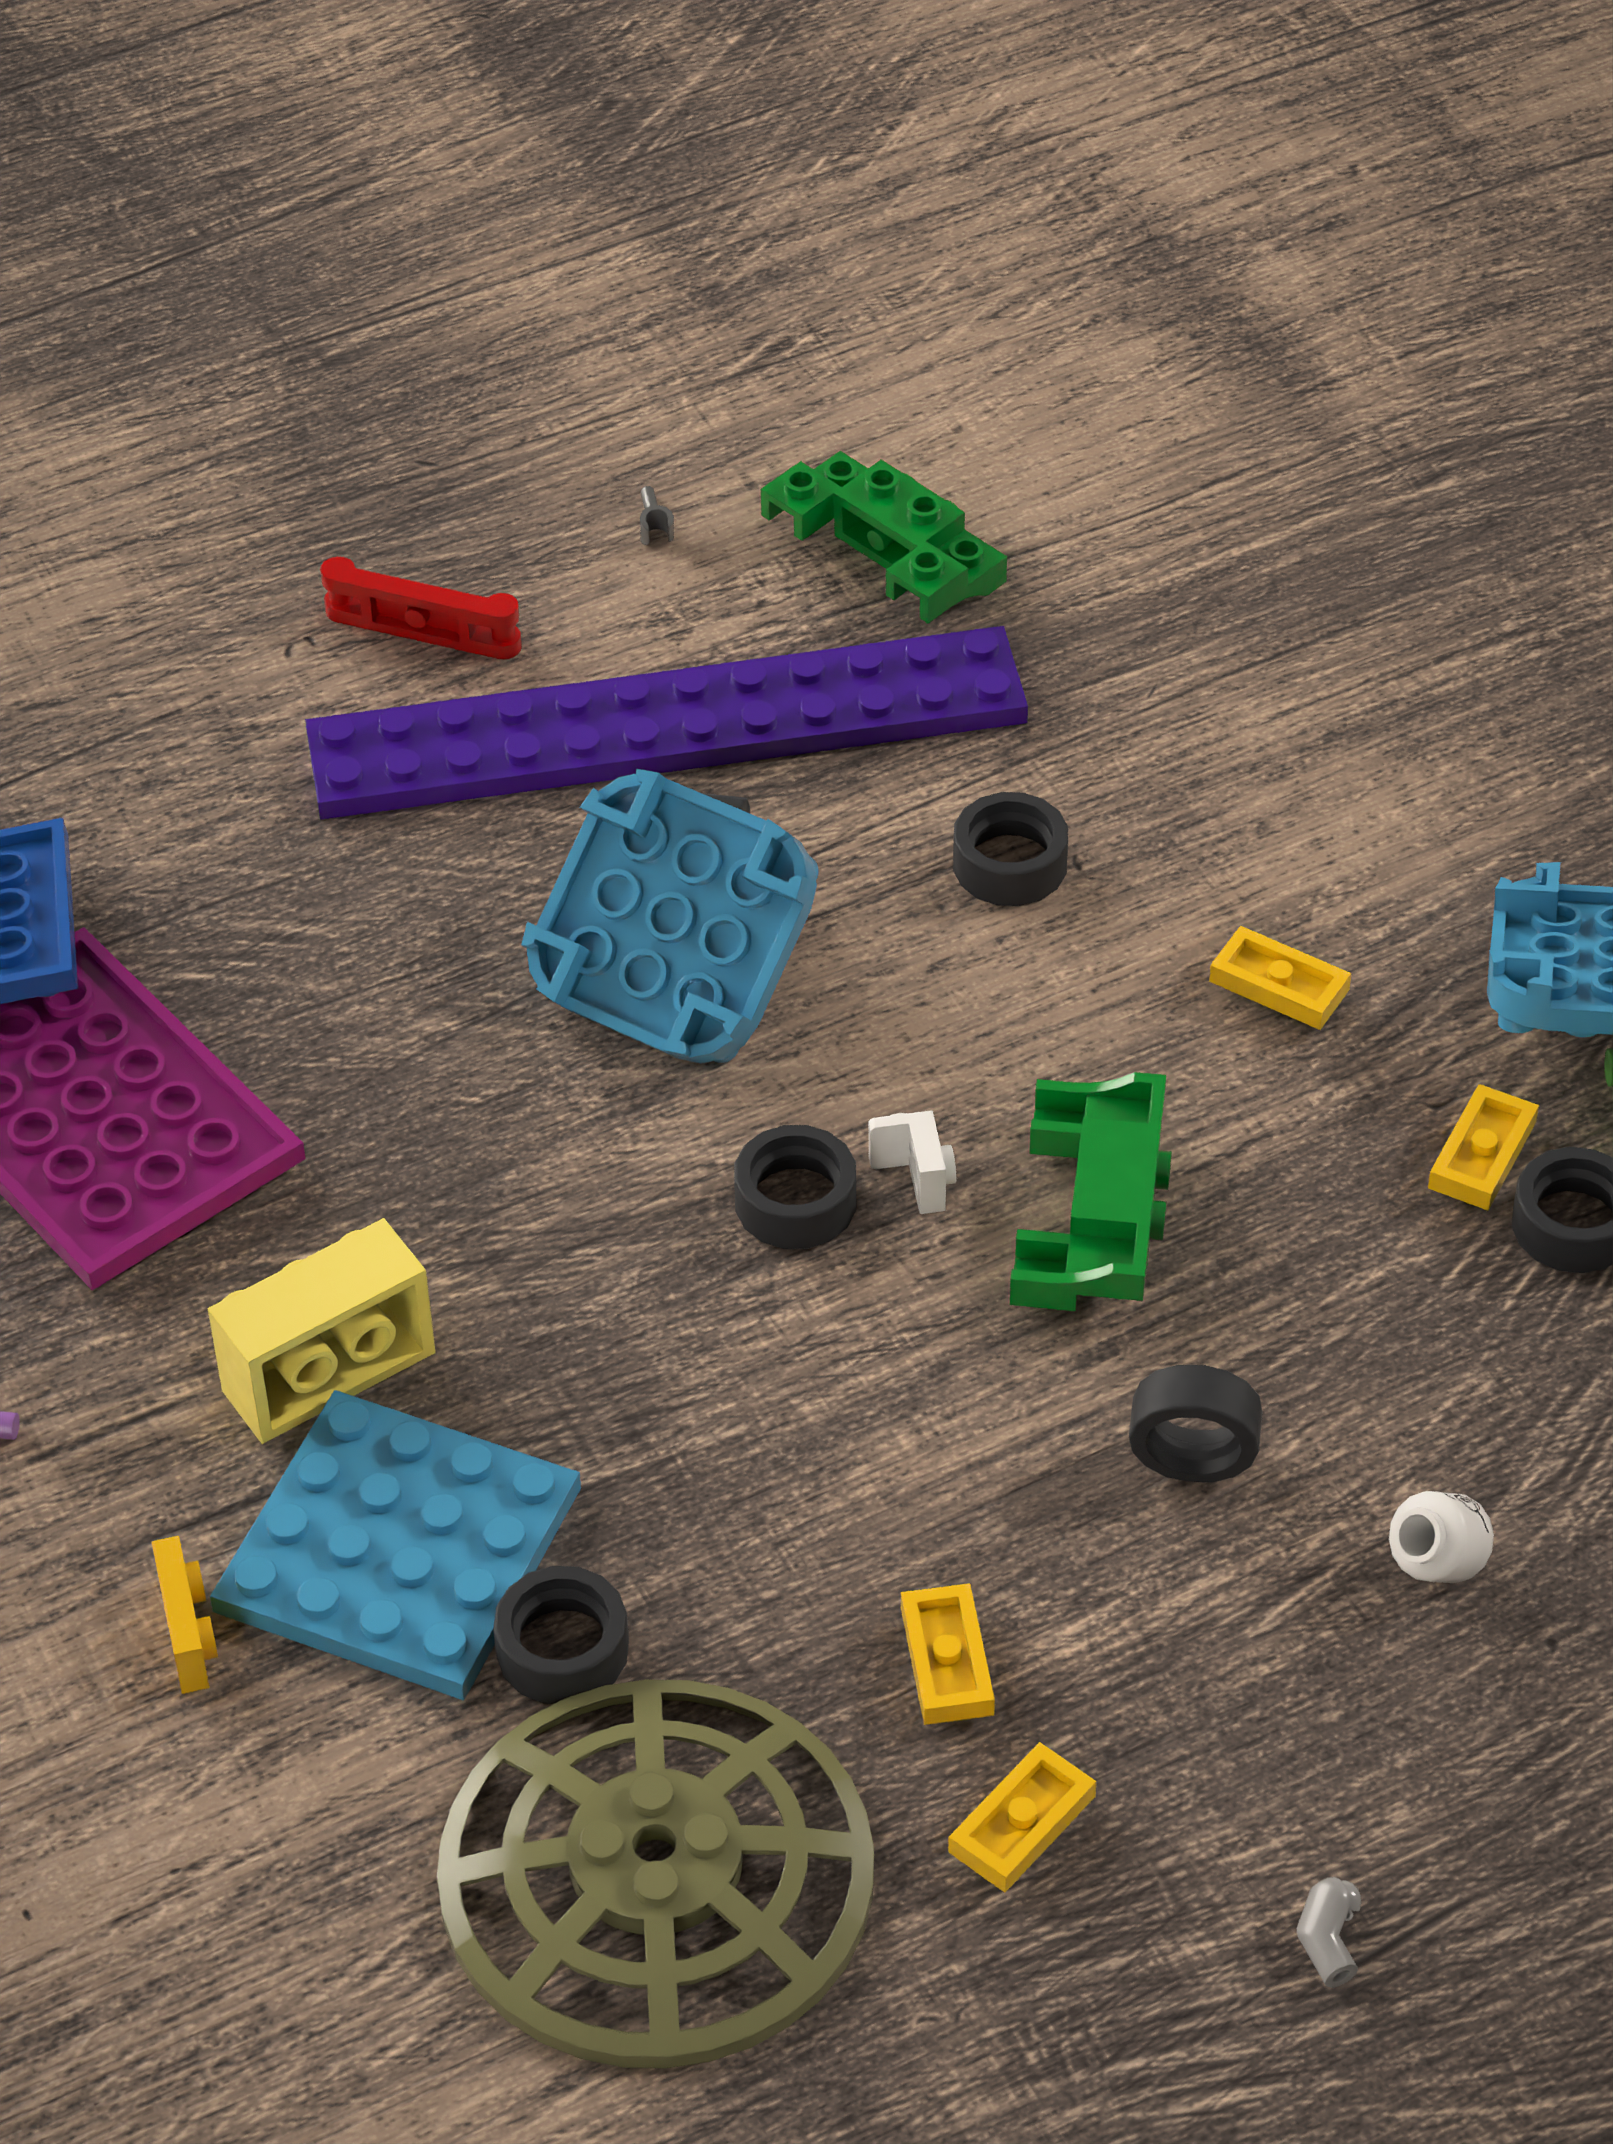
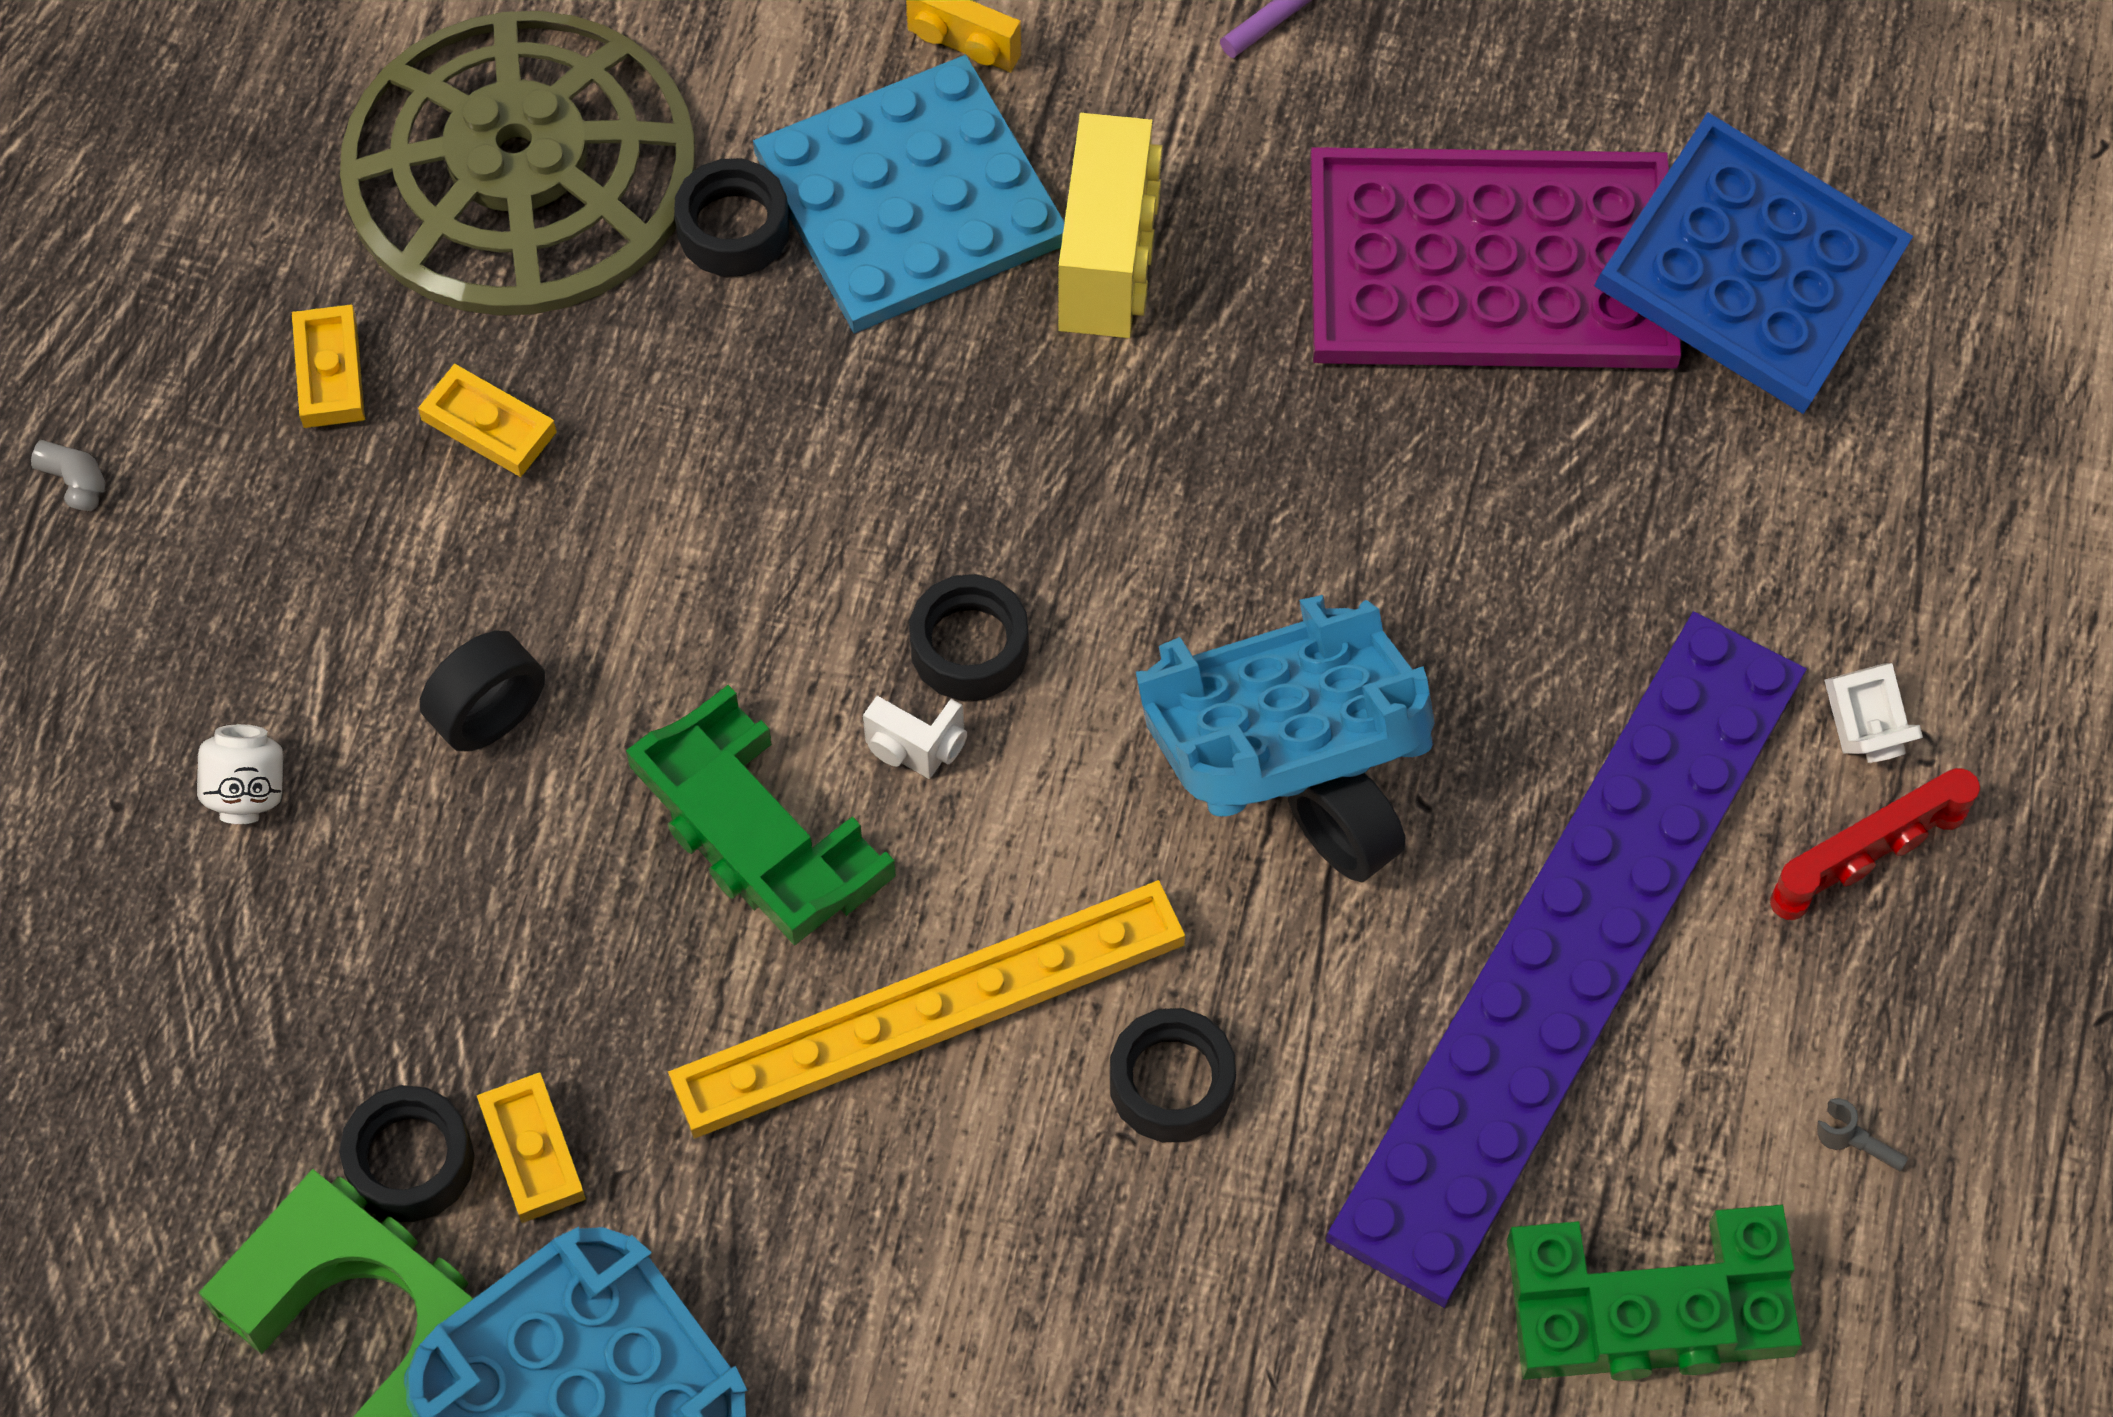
camera: 130 degrees right, 15 degrees up
(316, 664) = (1870, 713): none -> white bracket
(1121, 1007) = (926, 1009): none -> yellow plate
(1280, 977) = (840, 1156): yellow plate -> none

